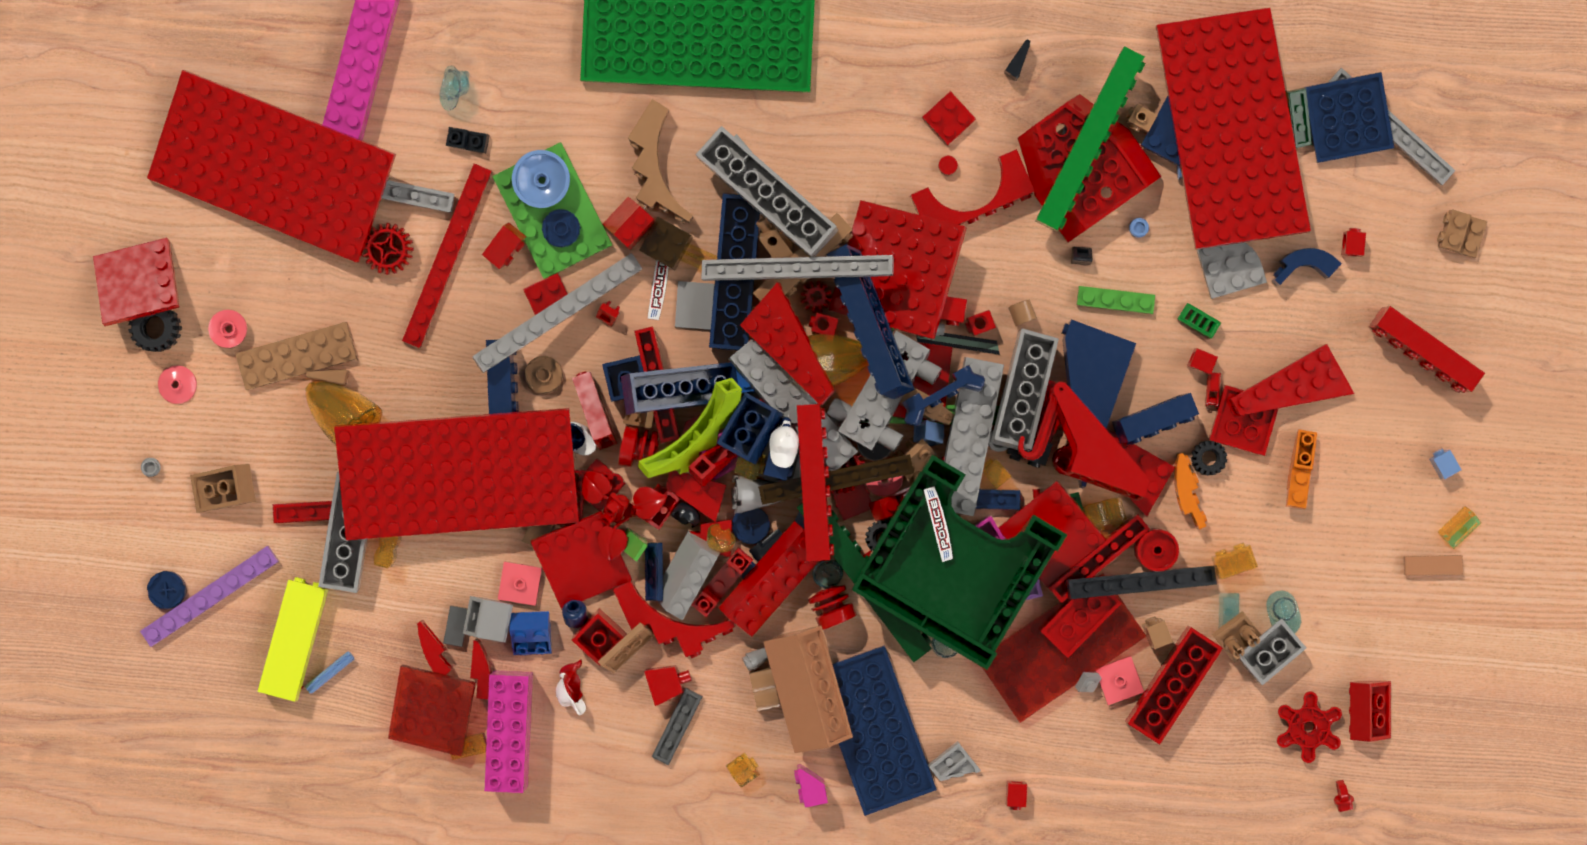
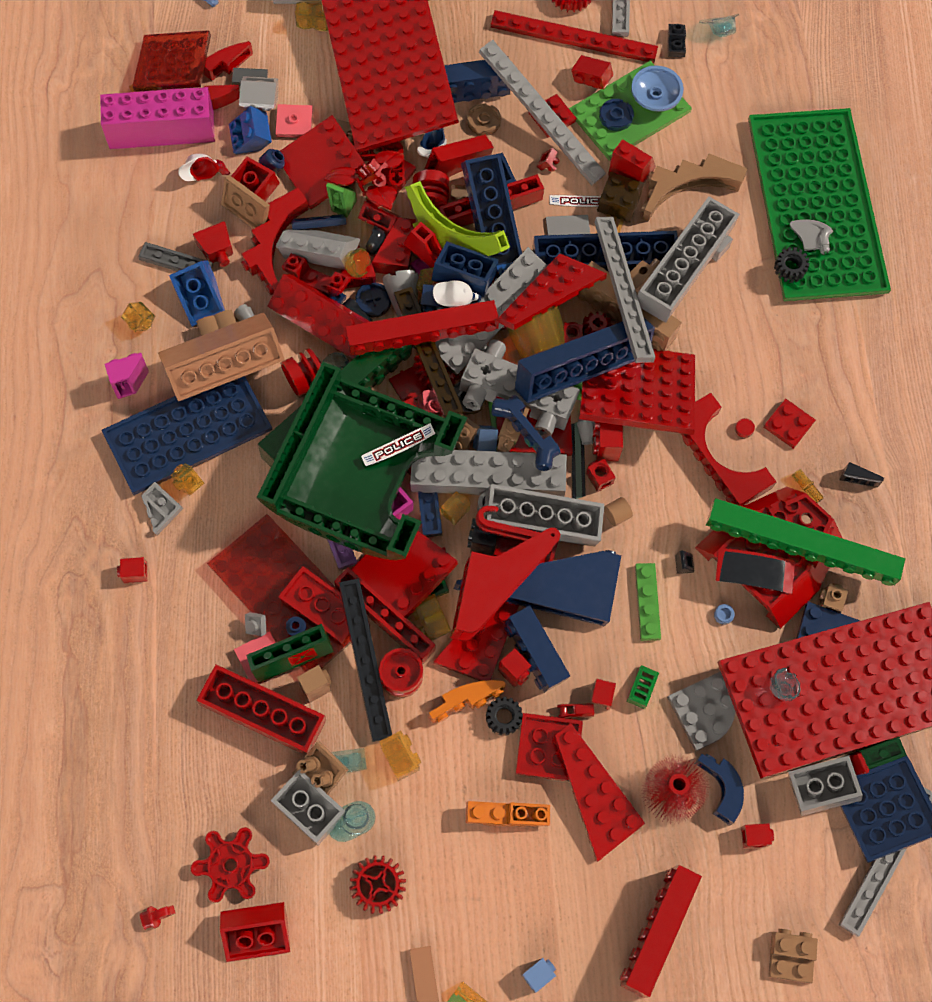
camera: 75 degrees right, 20 degrees down
(722, 706) = (197, 291): none -> blue slope
(741, 45) = (812, 234): none -> light grey arm
(776, 66) = (795, 256): none -> black tyre
(931, 735) = (186, 479): none -> clear yellow brick
(1020, 115) = (807, 486): none -> clear yellow axle
(1093, 640) = (302, 625): none -> dark blue plate
(1108, 192) = (755, 569): none -> black sticker
(1127, 652) = (289, 653): none -> dark green brick
(1169, 441) = (515, 668): none -> red brick
(1232, 193) = (784, 685): none -> clear light blue hair
(1295, 310) = (675, 789): none -> red piece
(1305, 134) = (859, 764): none -> red slope
(1322, 171) = (825, 785): none -> light grey brick
(1332, 586) = (362, 876): none -> red gear

